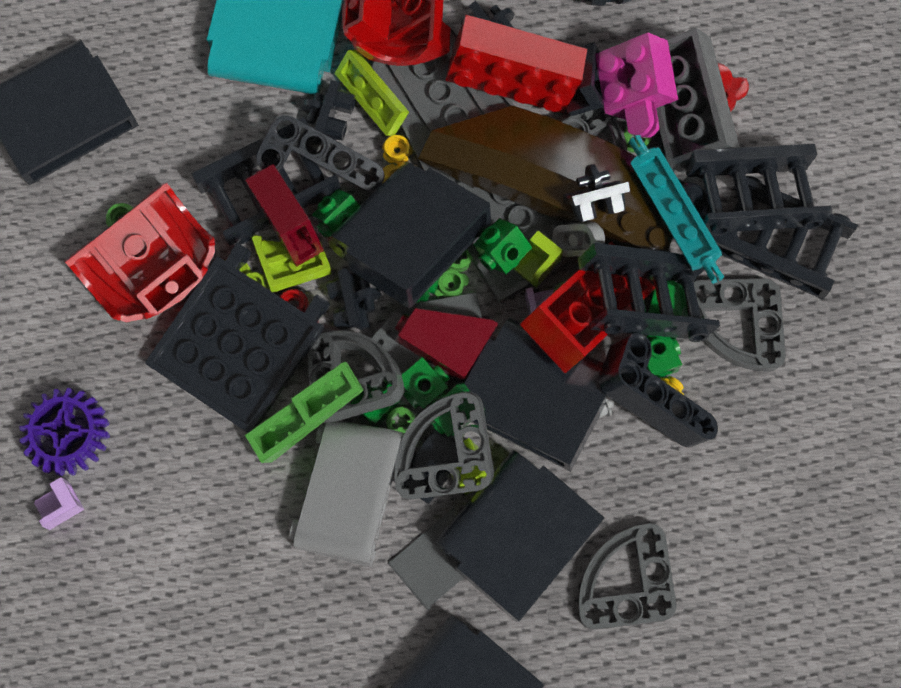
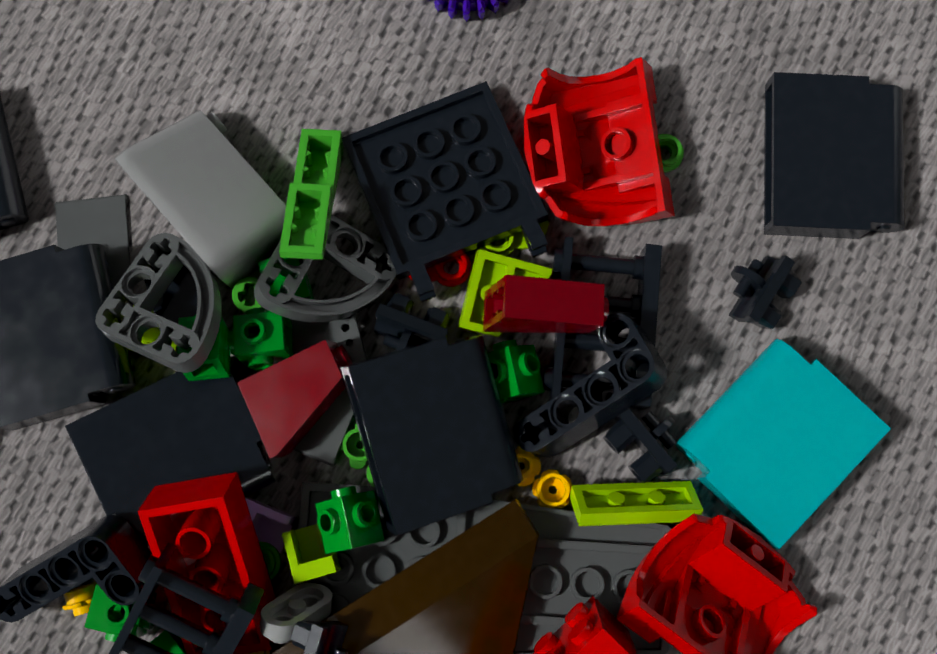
camera: 125 degrees right, 5 degrees up
(179, 101) = (758, 287): none -> black hips

